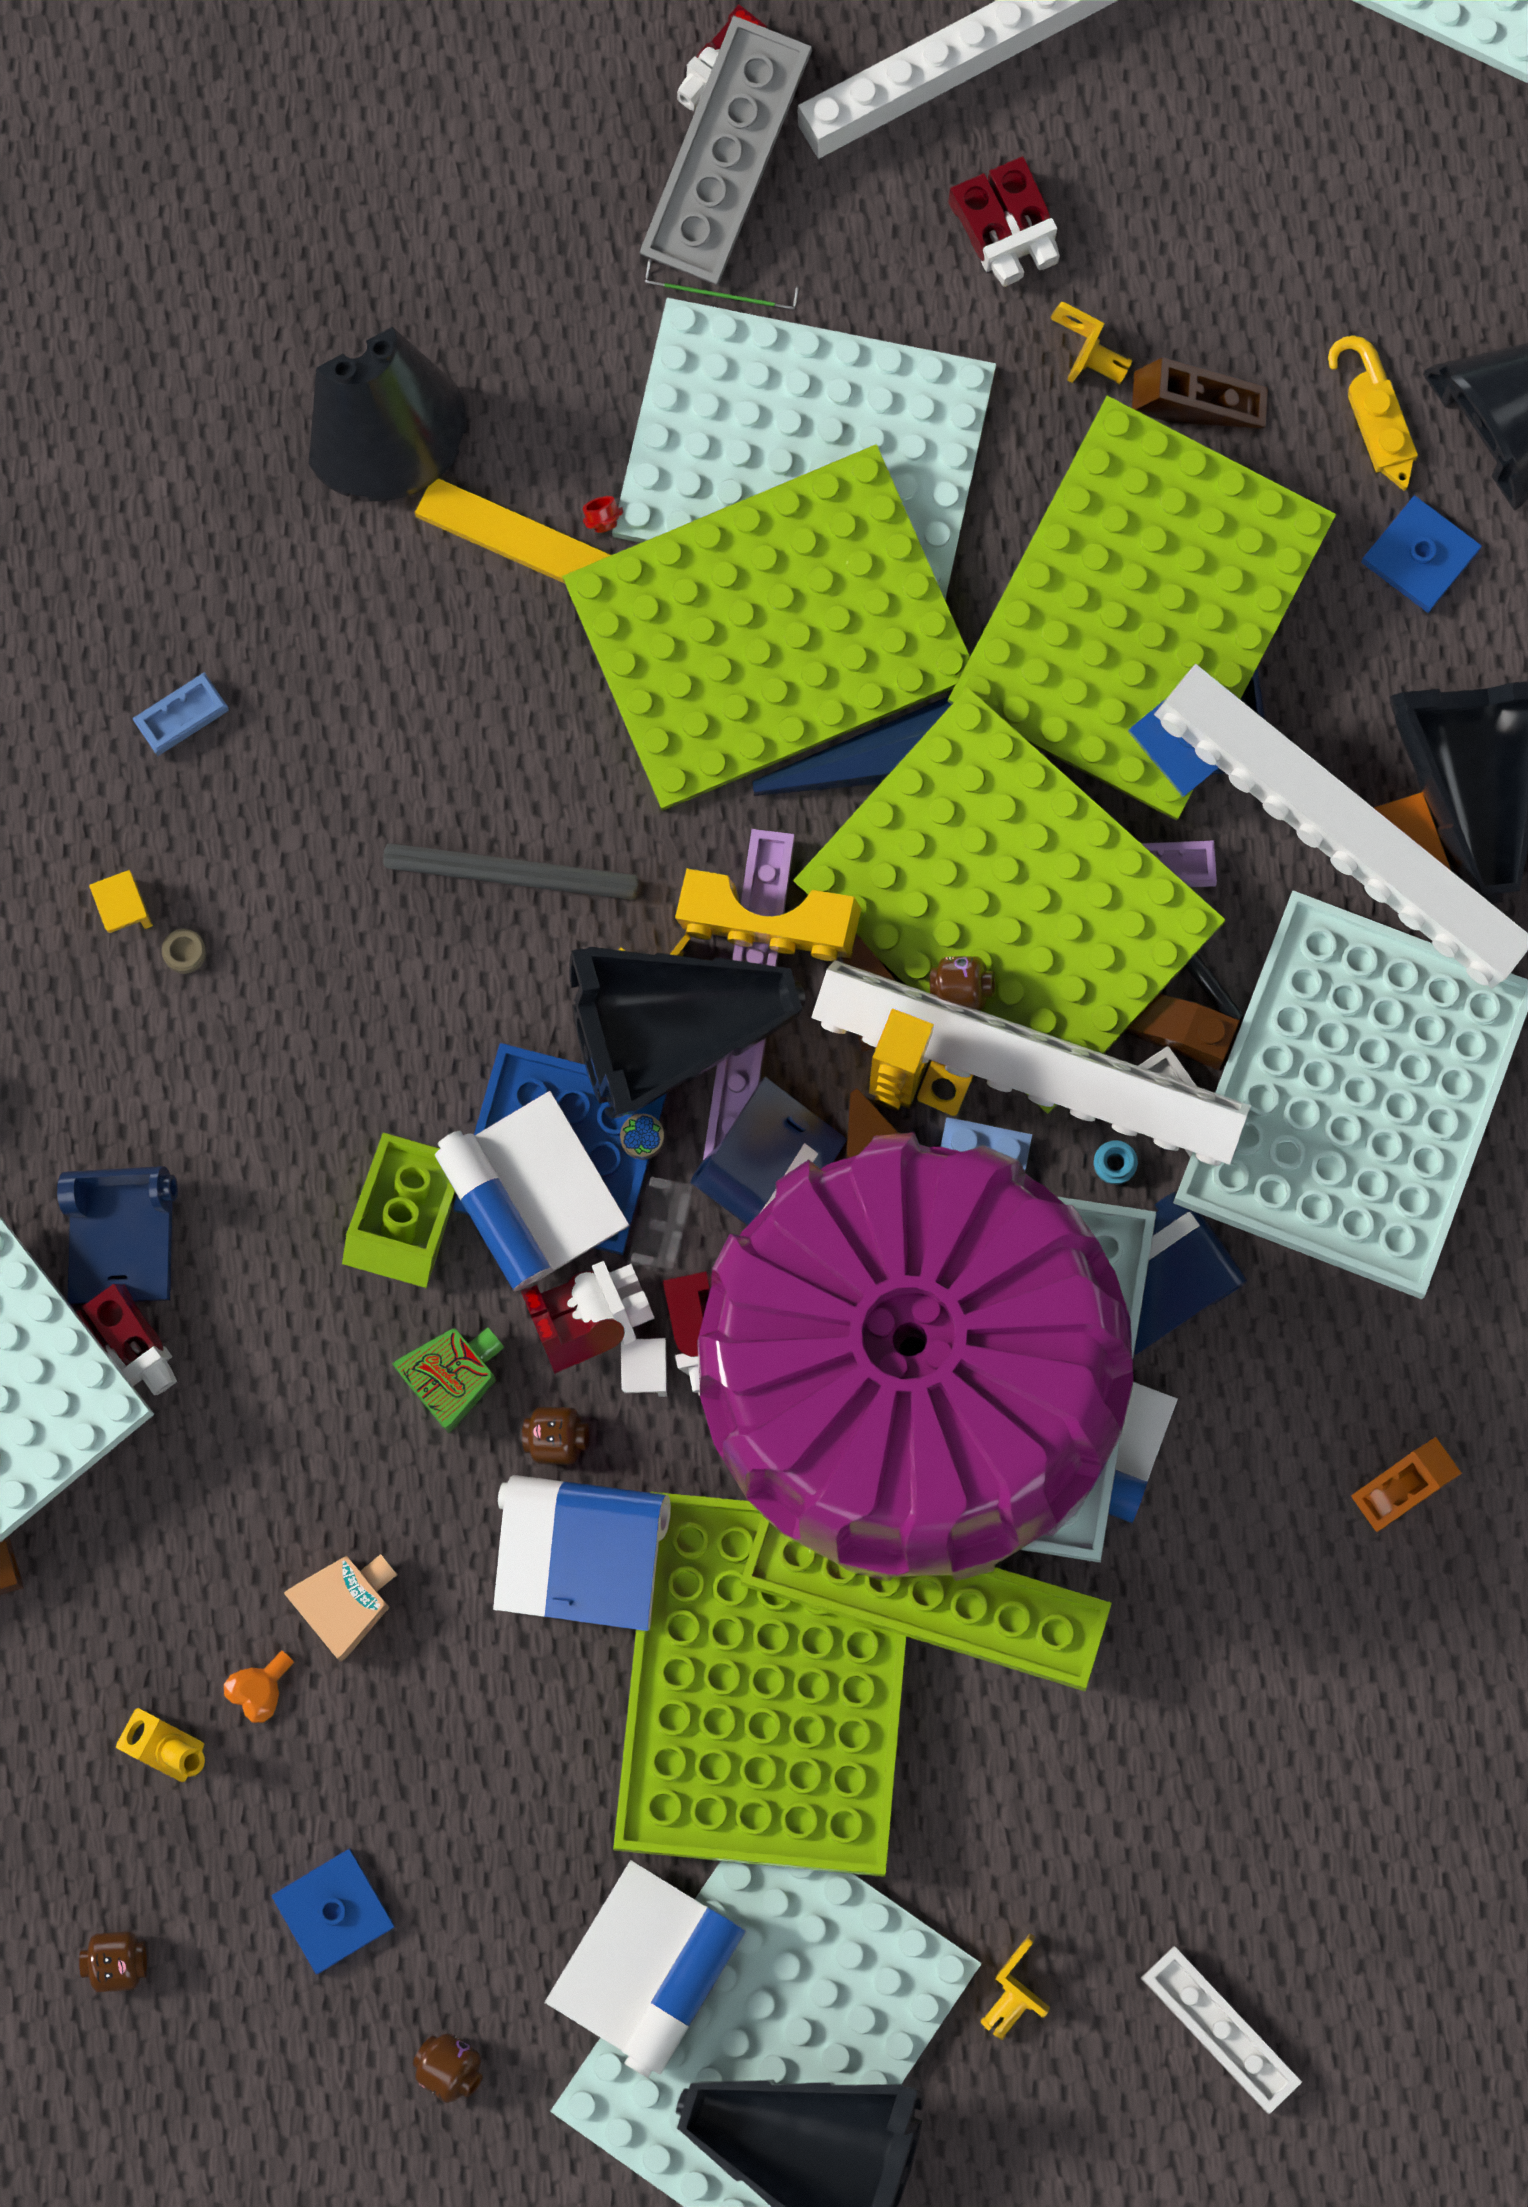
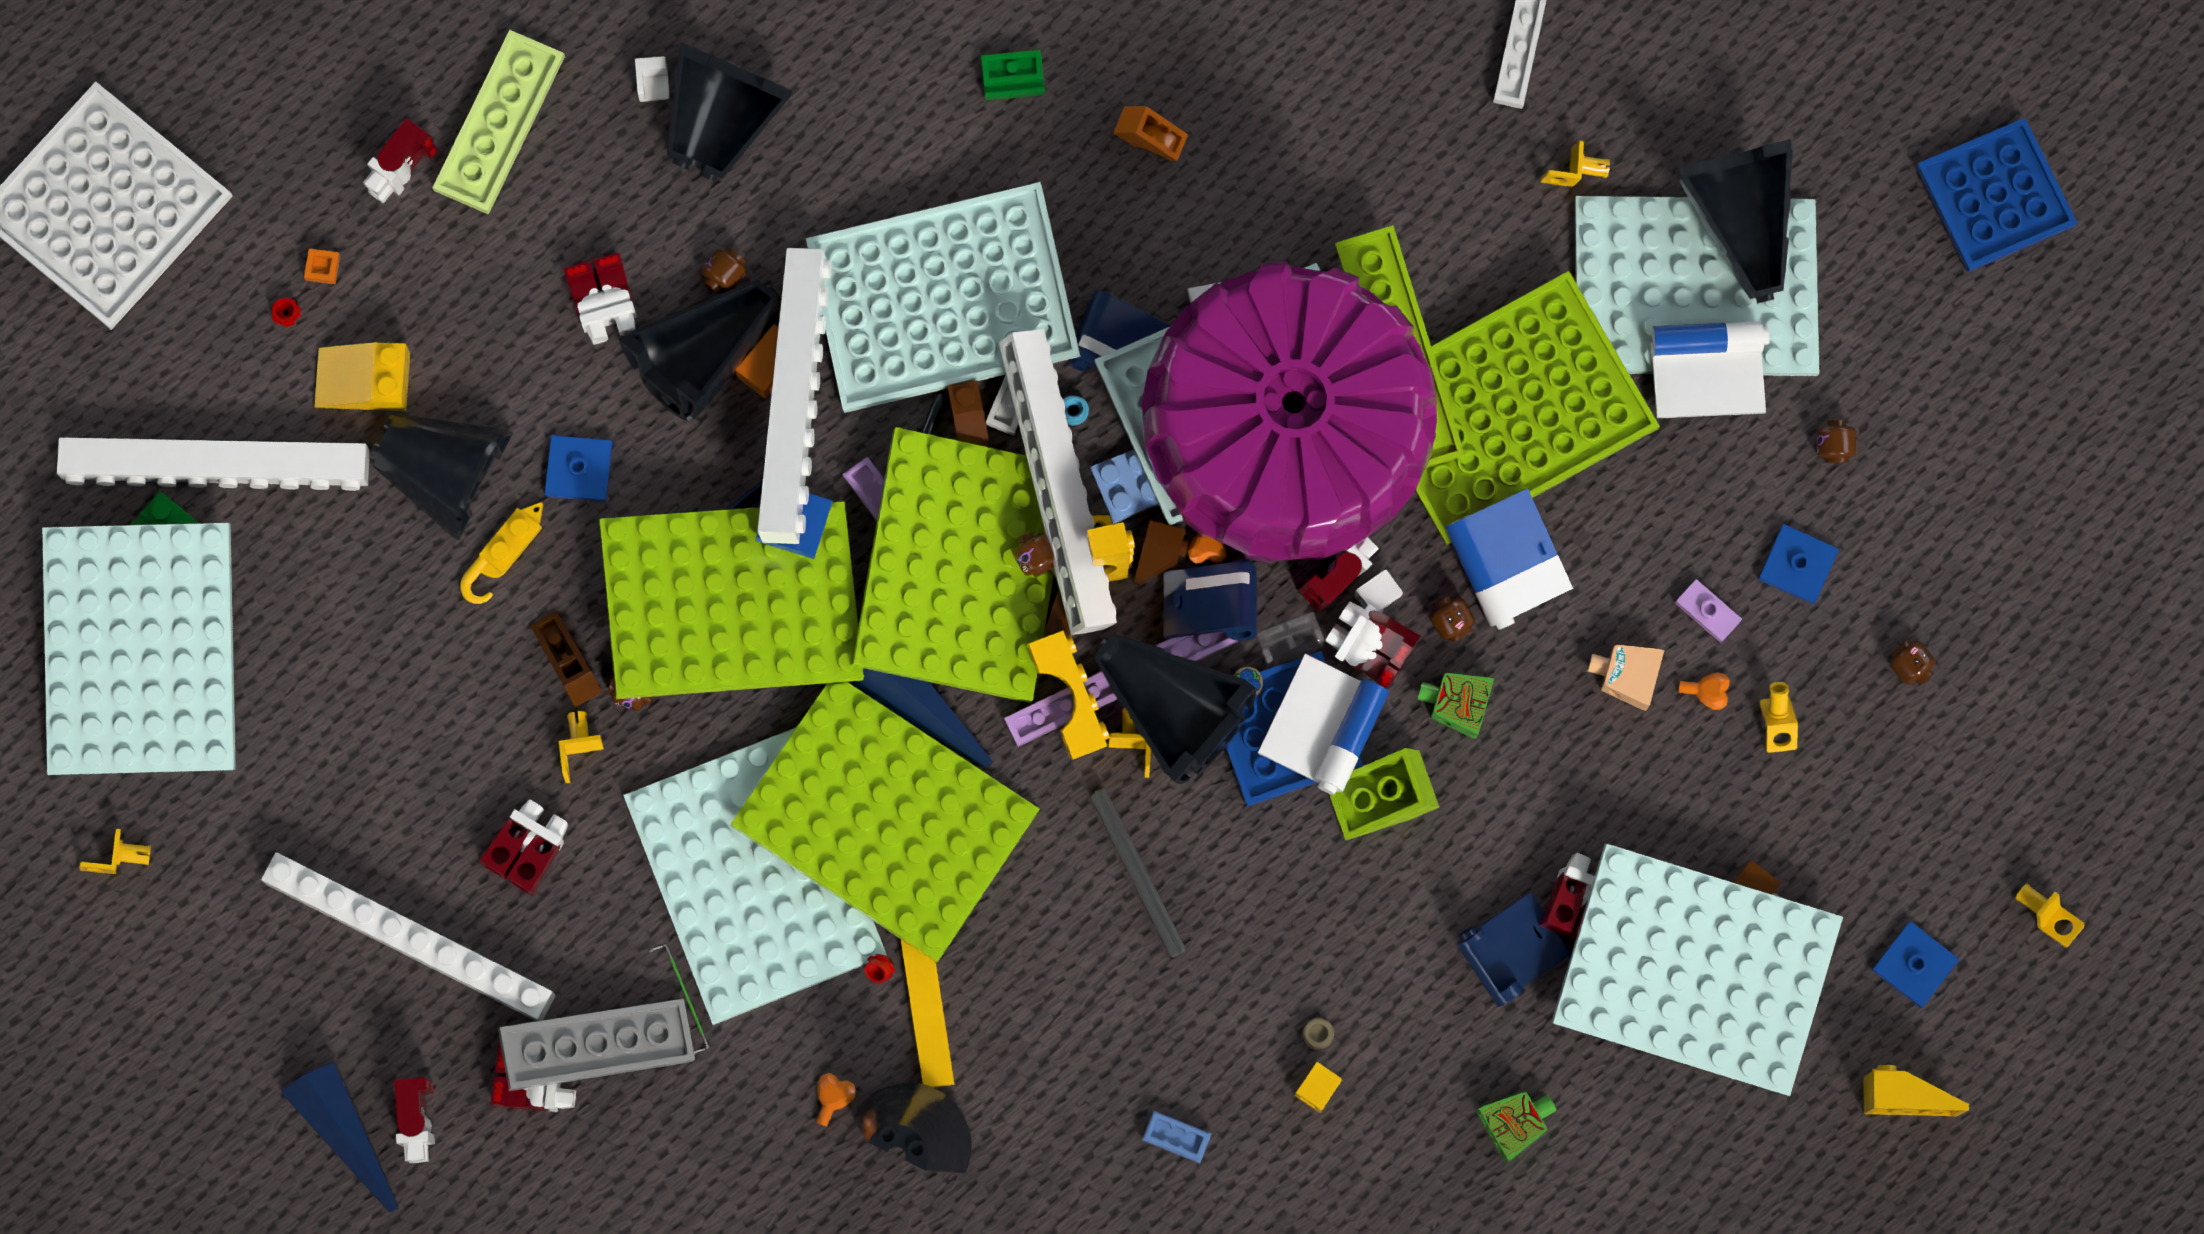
camera: 130 degrees left, 0 degrees up
(353, 1757) = (1708, 611): none -> lavender plate
(493, 376) = (833, 1096): none -> orange rock

